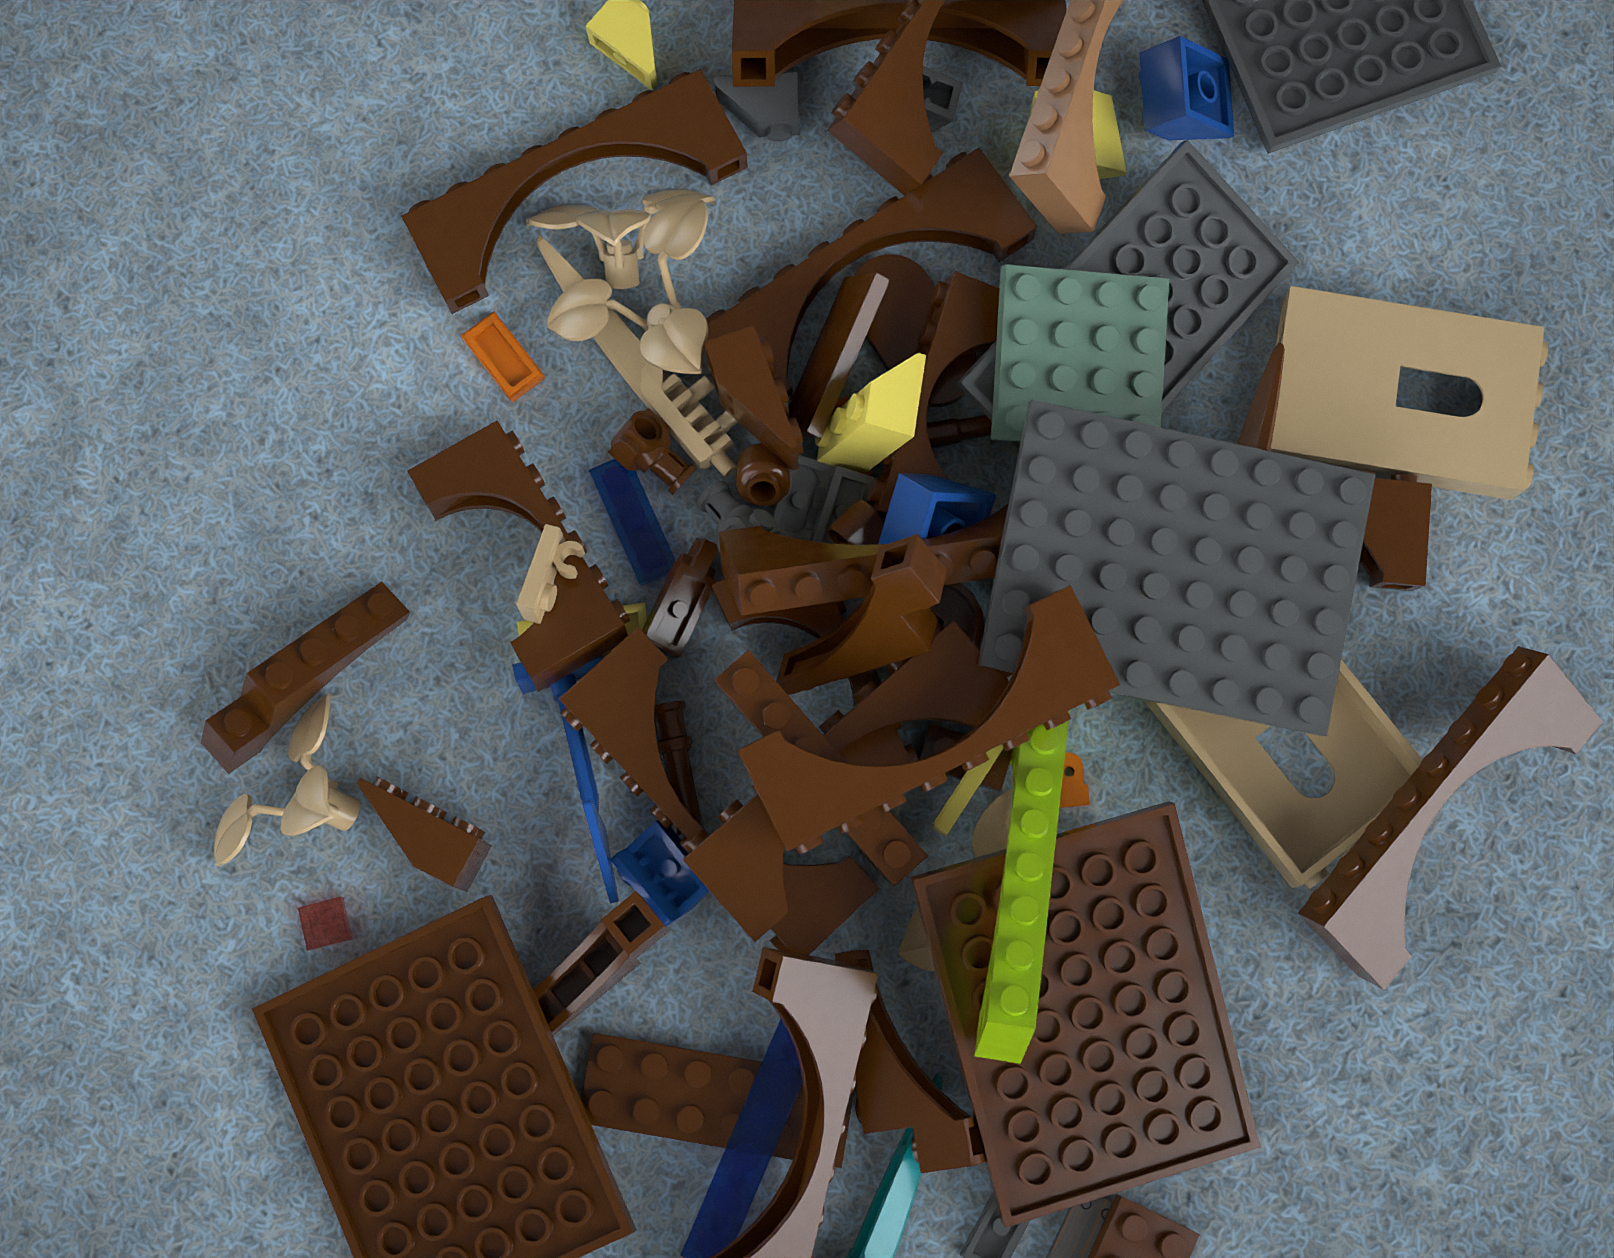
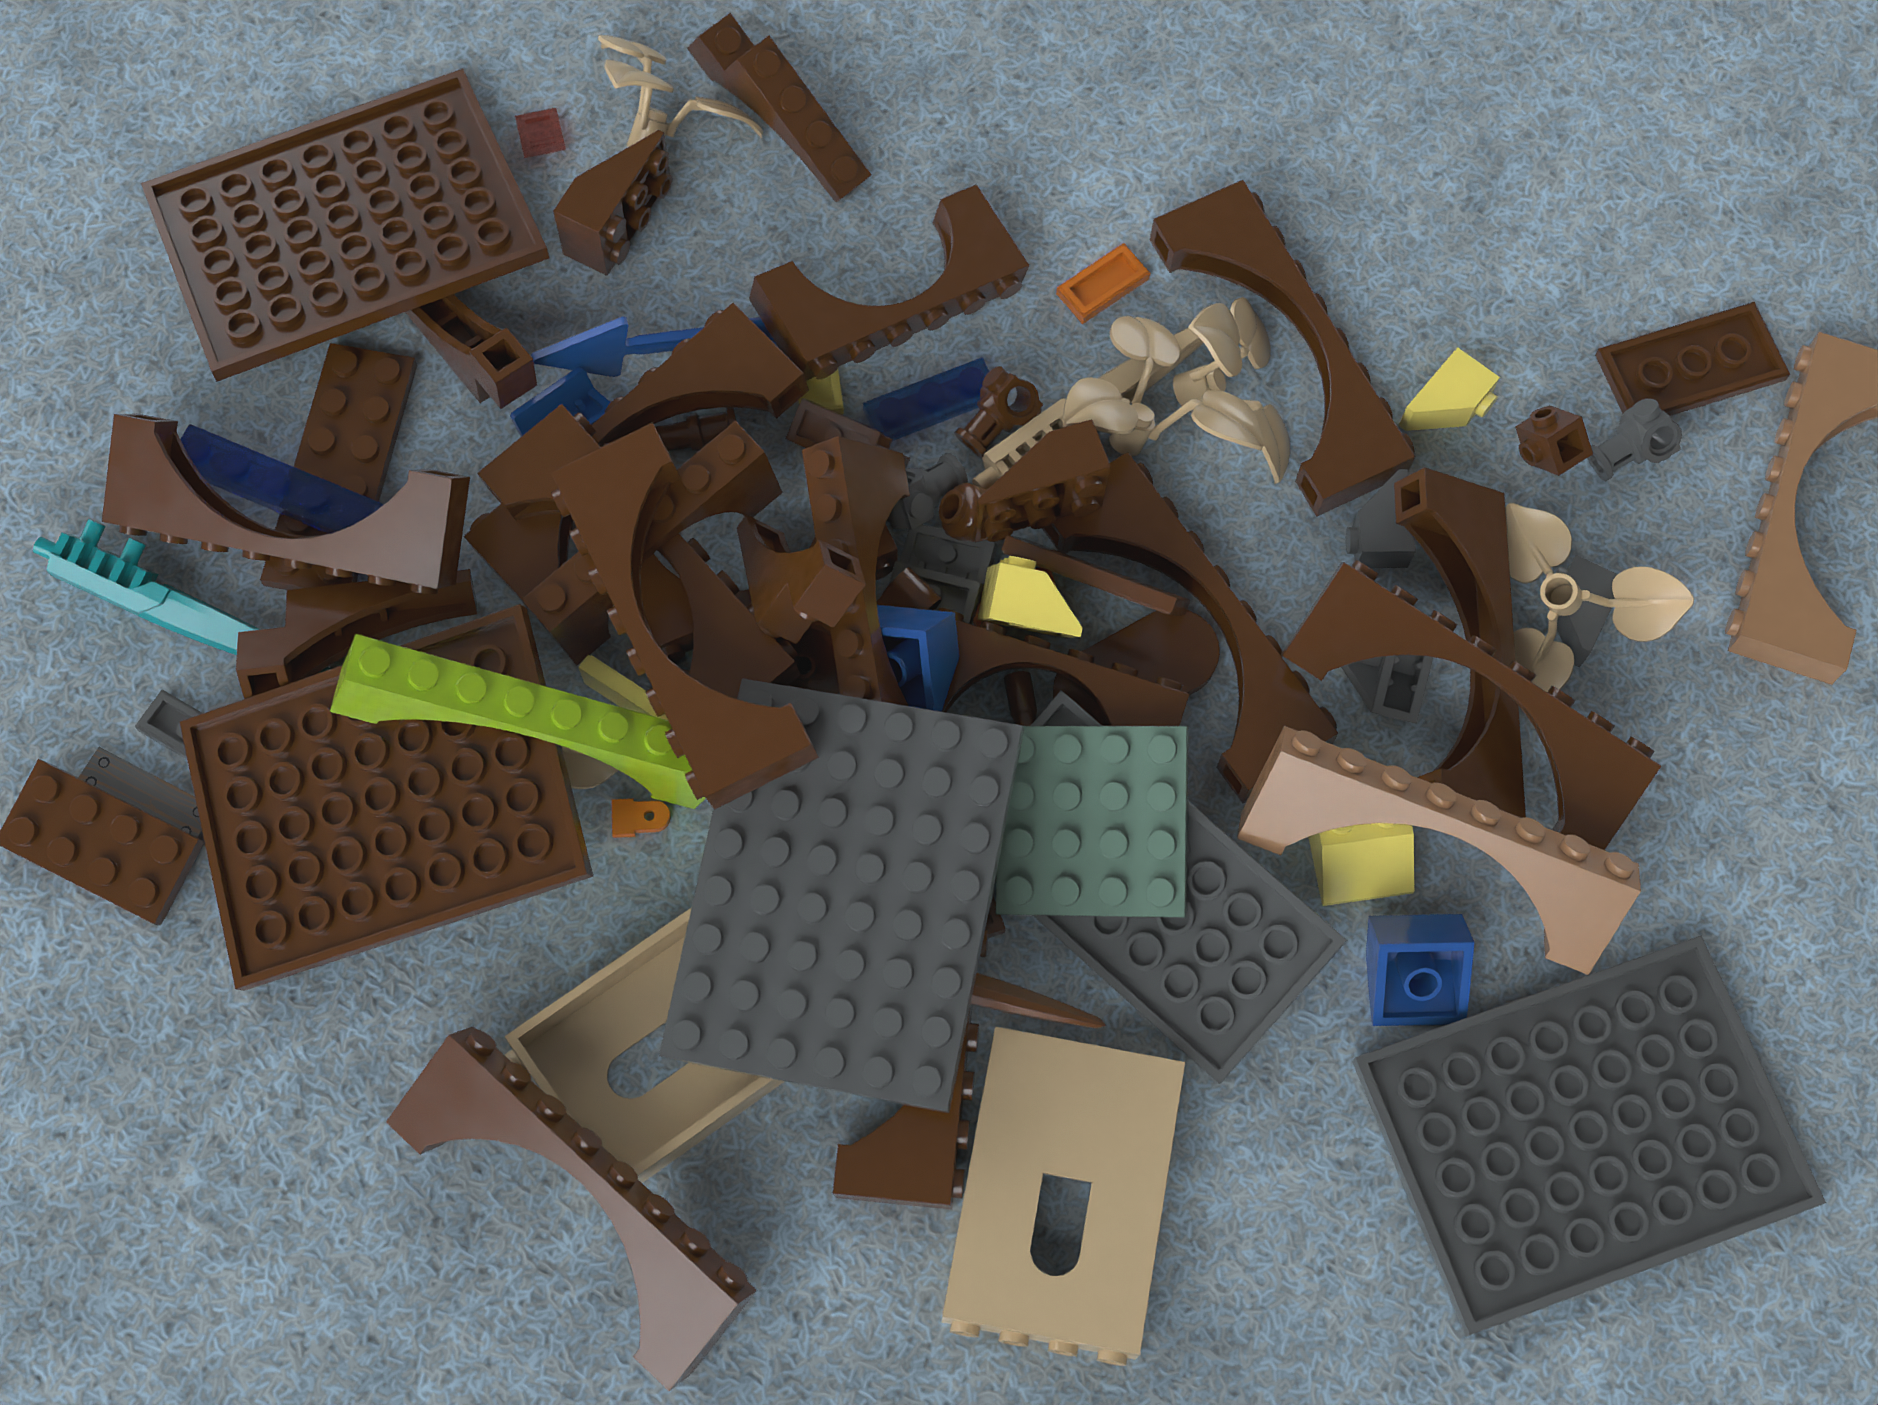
camera: 85 degrees right, 10 degrees down
(538, 588) = (855, 283): tan plate -> none

